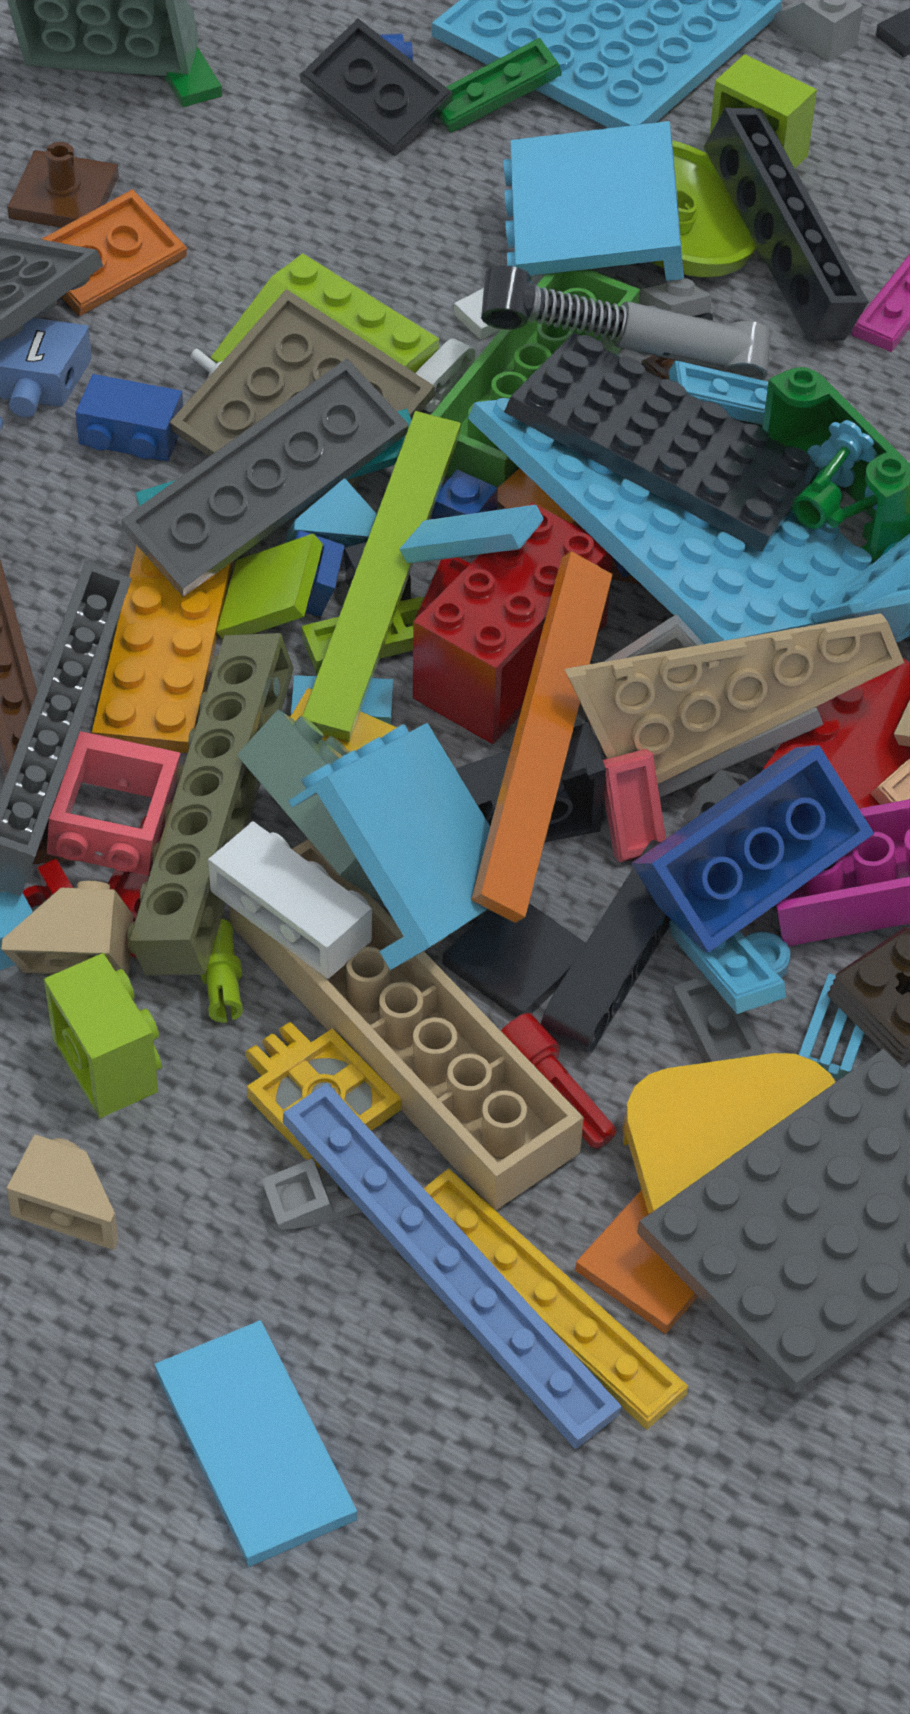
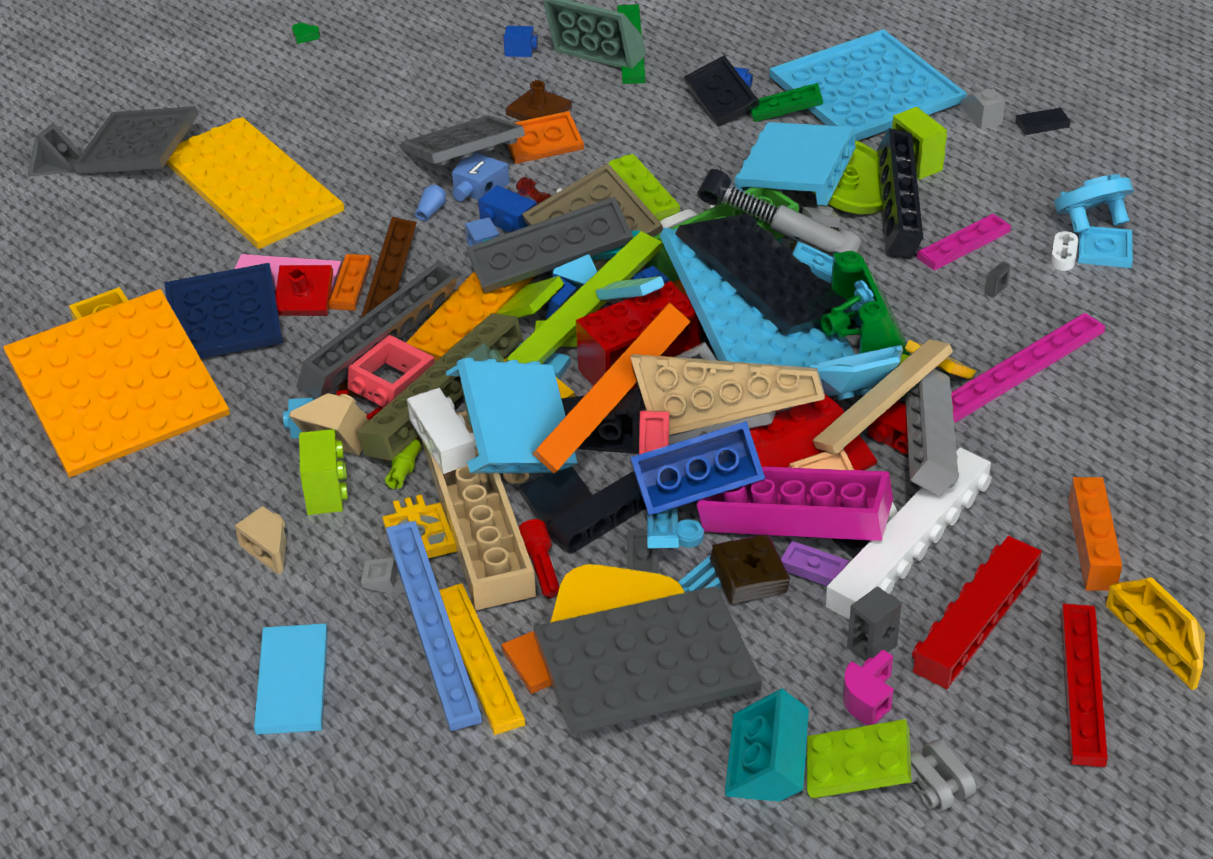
camera: 25 degrees right, 10 degrees down
(111, 481) = (479, 230): none -> medium blue brick
(154, 367) = (527, 187): none -> clear red bar

